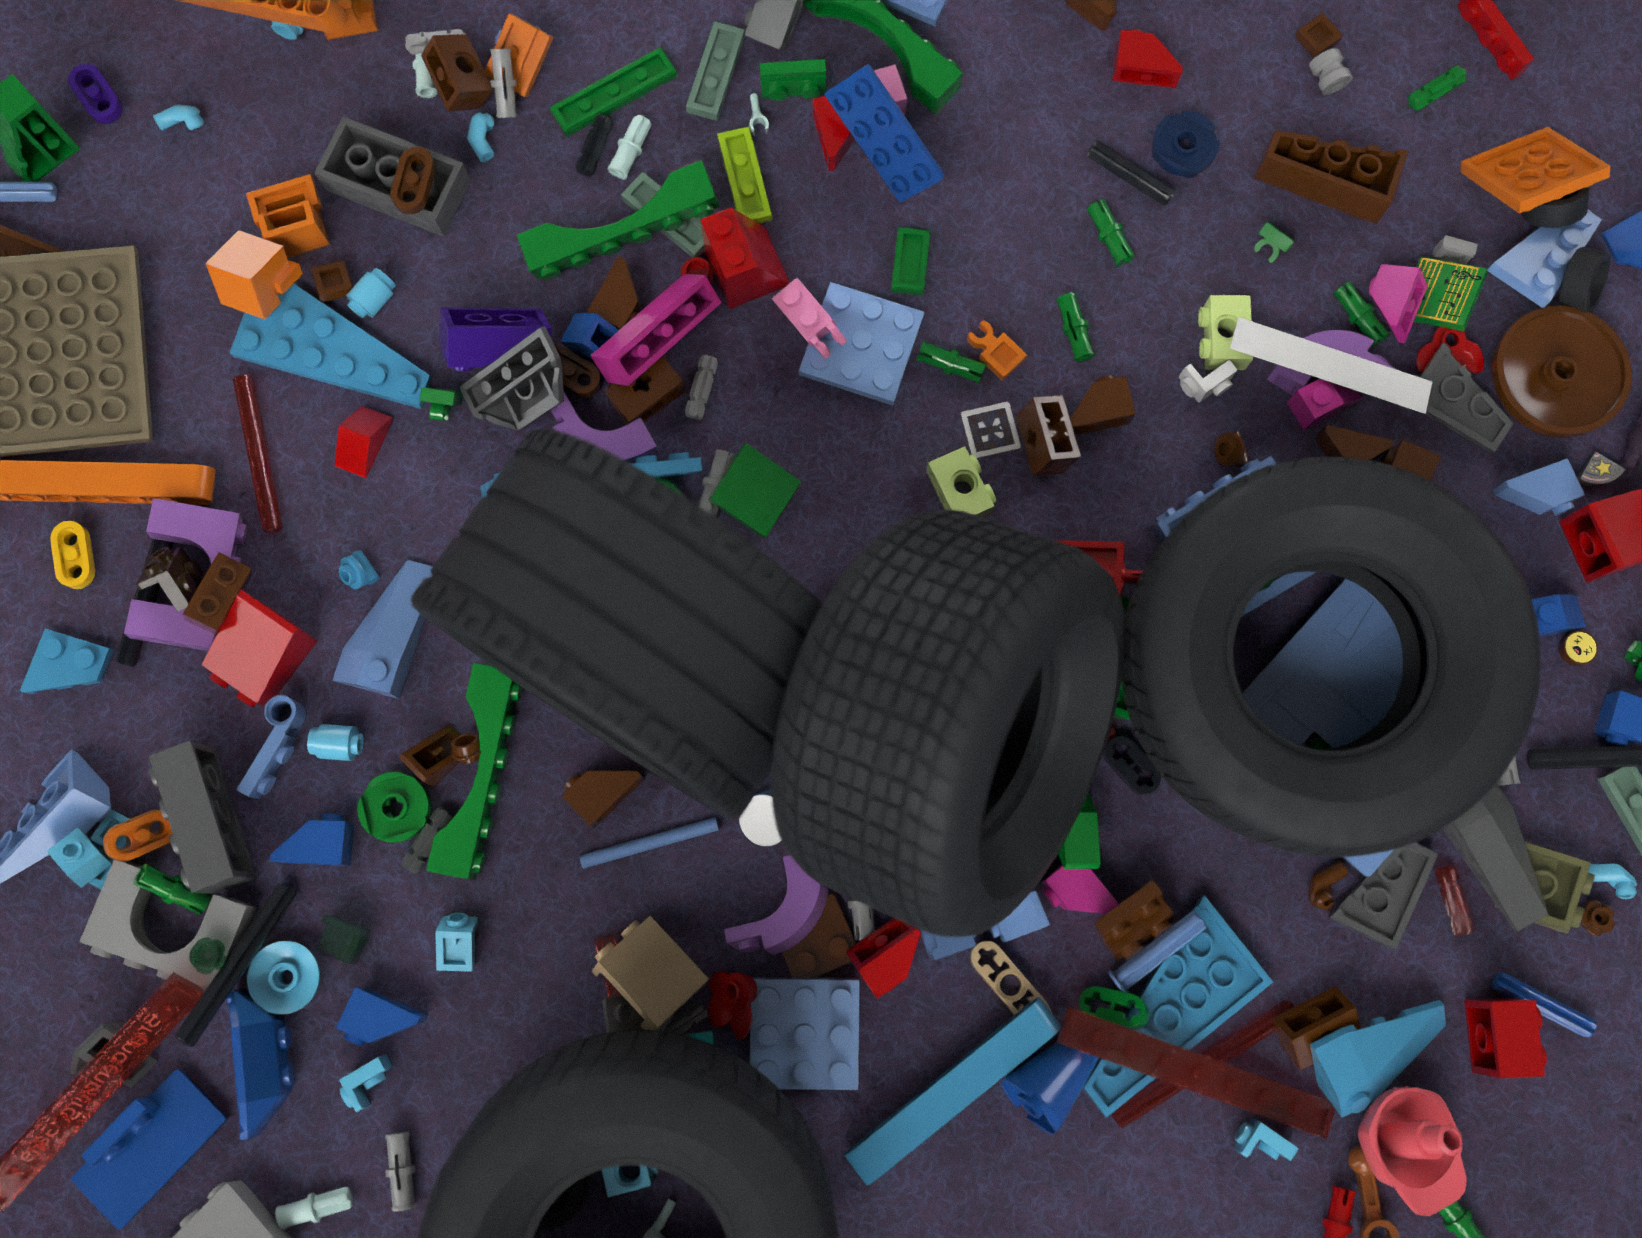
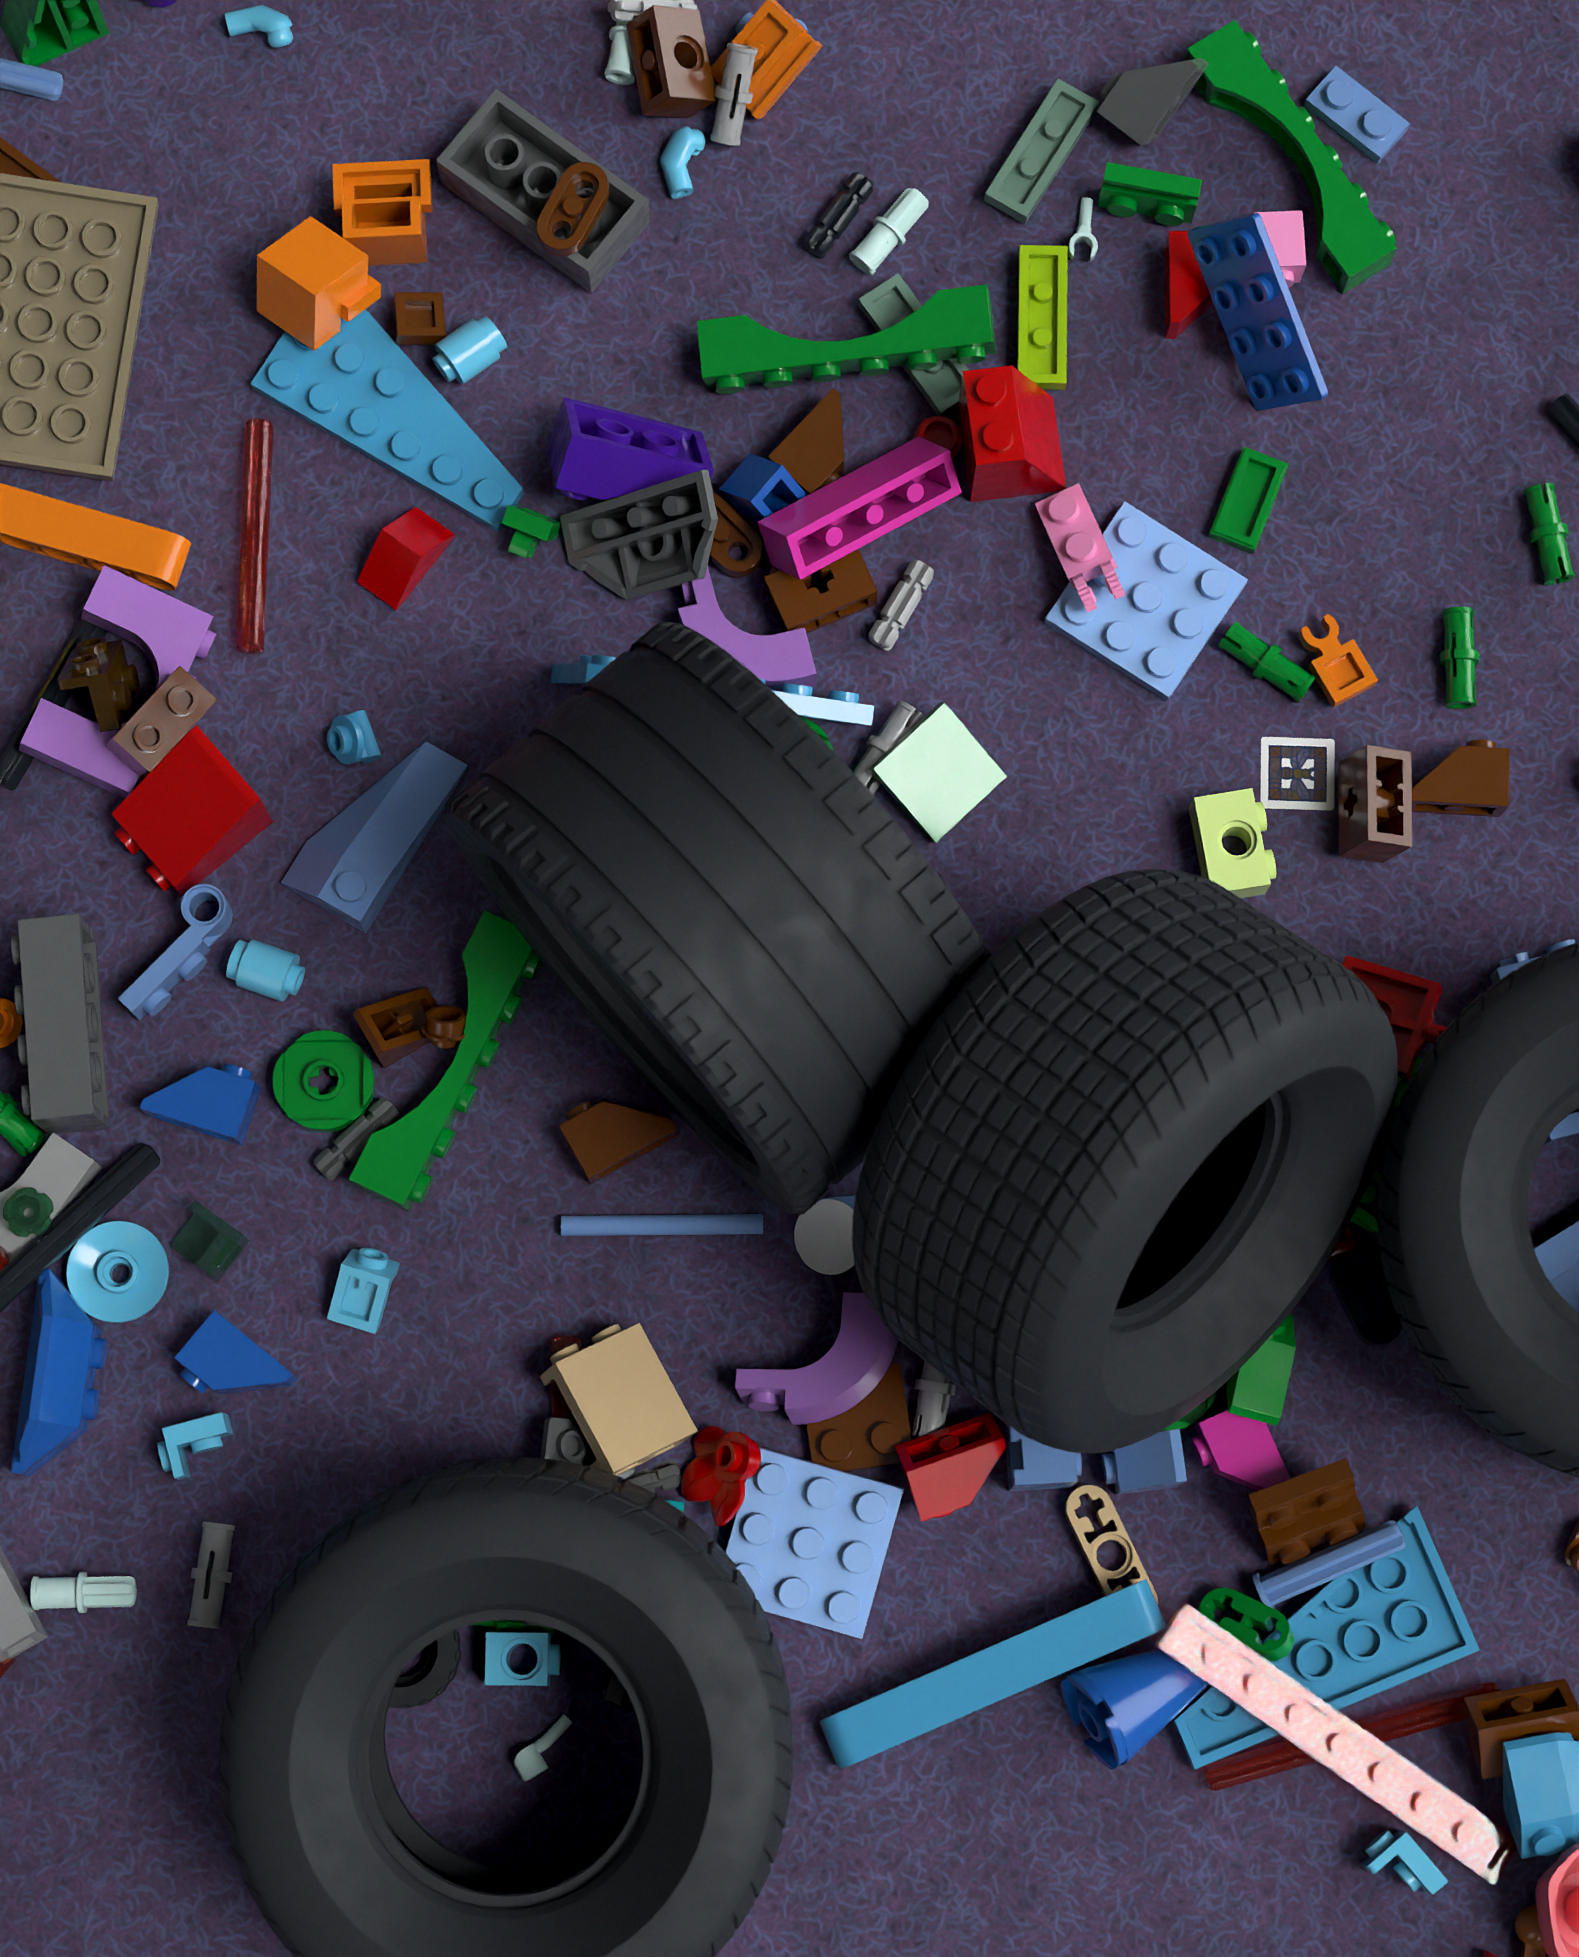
camera: 15 degrees right, 0 degrees up
(613, 91) = (887, 143): green tile -> none

